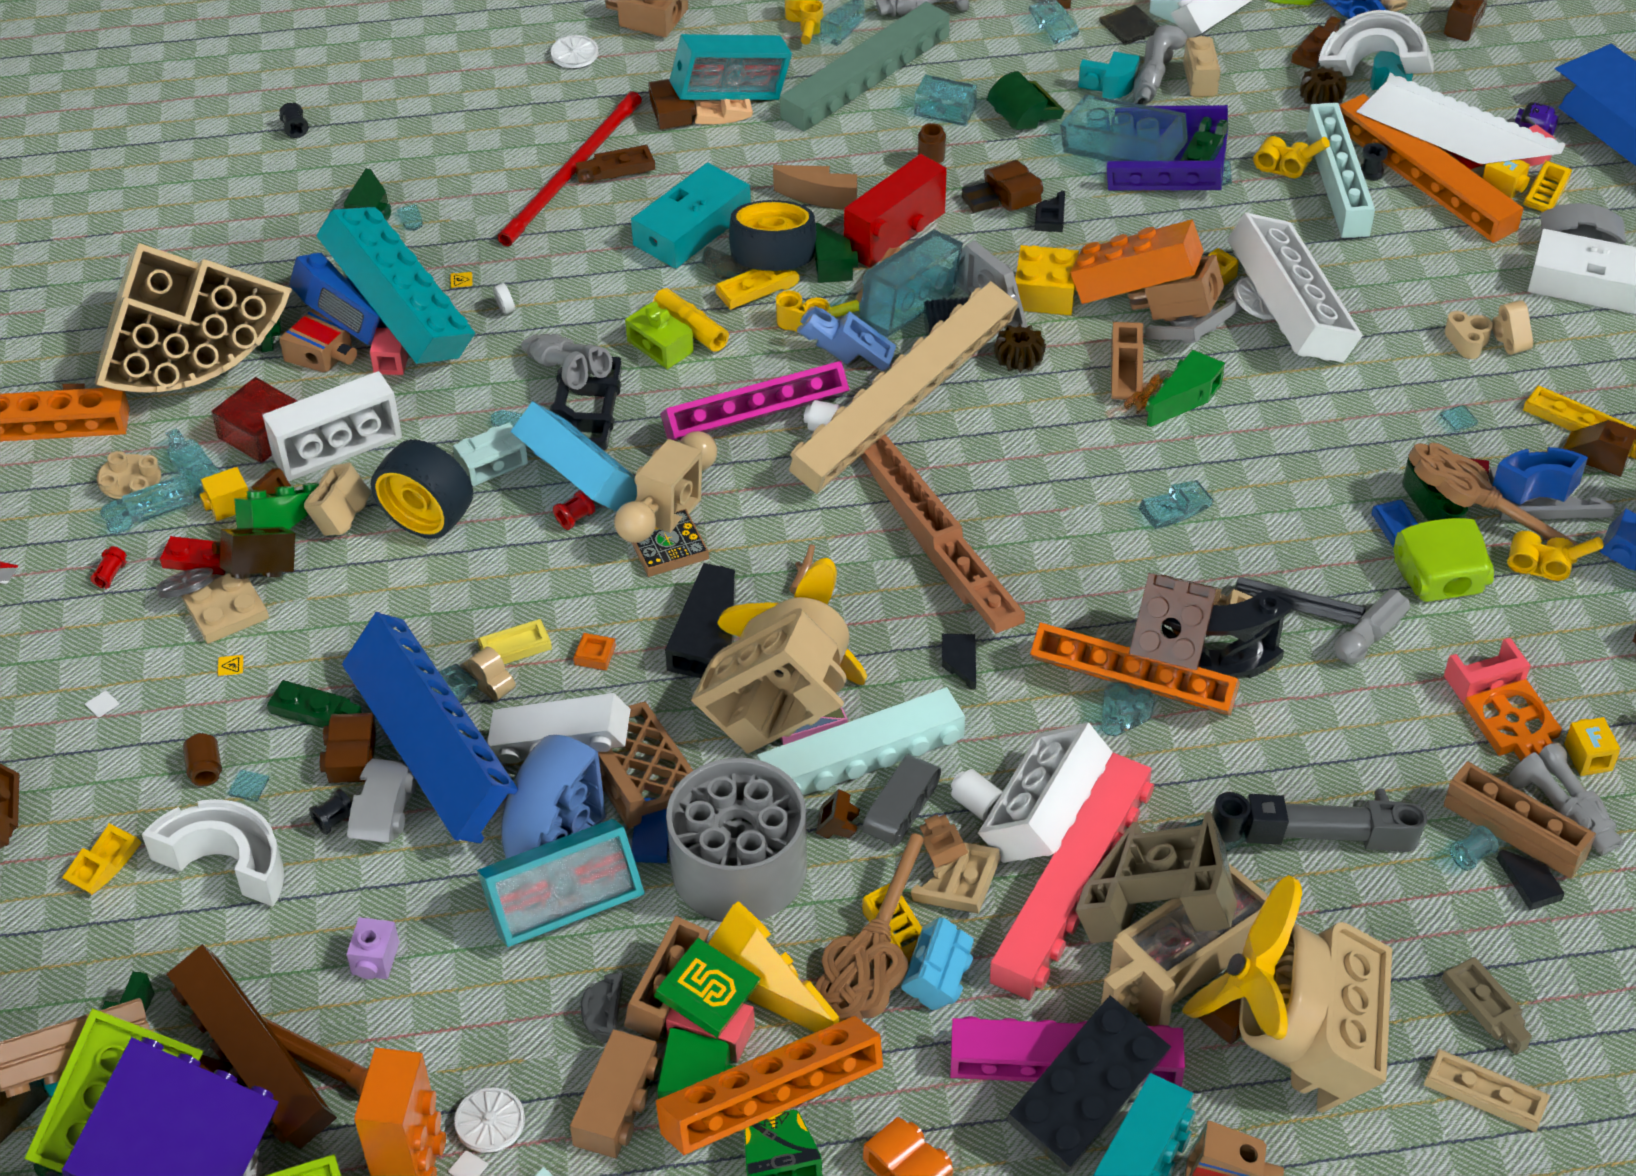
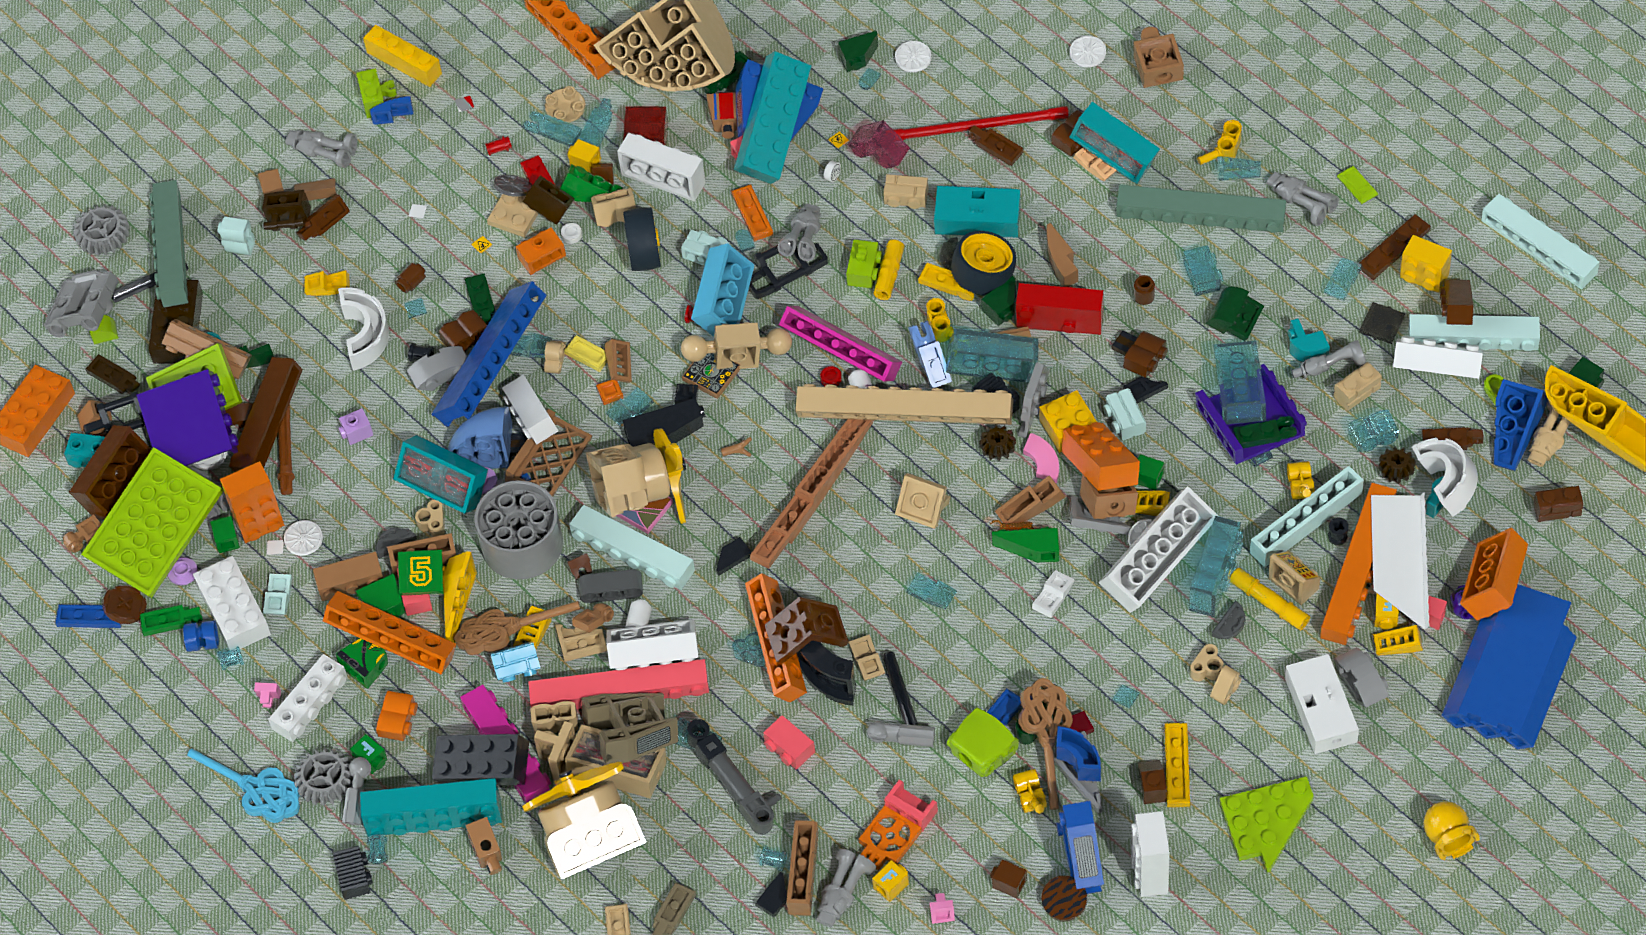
camera: 60 degrees right, 10 degrees up
(314, 605) = (540, 251): none -> orange brick
(318, 567) = (571, 233): none -> white tile
(424, 170) = (913, 56): none -> white wheel
(478, 394) = (752, 212): none -> orange tile
(515, 234) = (881, 142): none -> clear pink brick
(558, 611) = (611, 349): none -> medium nougat slope
(599, 255) = (905, 191): none -> tan brick
(609, 932) = (436, 514): none -> tan piece
(640, 642) = (632, 406): none -> clear light blue slope
(676, 580) = (686, 392): none -> black tile
(783, 441) = (831, 376): none -> red tile
(1047, 441) = (921, 500): none -> tan bracket
(1071, 326) = (1043, 455): none -> bright pink tile
(1073, 966) = (551, 717): none -> tan brick
(1075, 231) = (1125, 414): none -> light aqua brick
(1266, 83) = (1373, 431): none -> clear light blue brick
(1266, 407) = (1053, 593): none -> white slope
(1301, 740) = (788, 742): none -> coral brick
(1355, 258) = (1215, 566): none -> clear light blue brick
(1410, 215) = (1293, 576): none -> tan slope
(1418, 248) = (1269, 599): none -> yellow piece
(1427, 290) = (1231, 623): none -> dark grey plate
(1539, 71) = (1494, 574): none -> orange brick

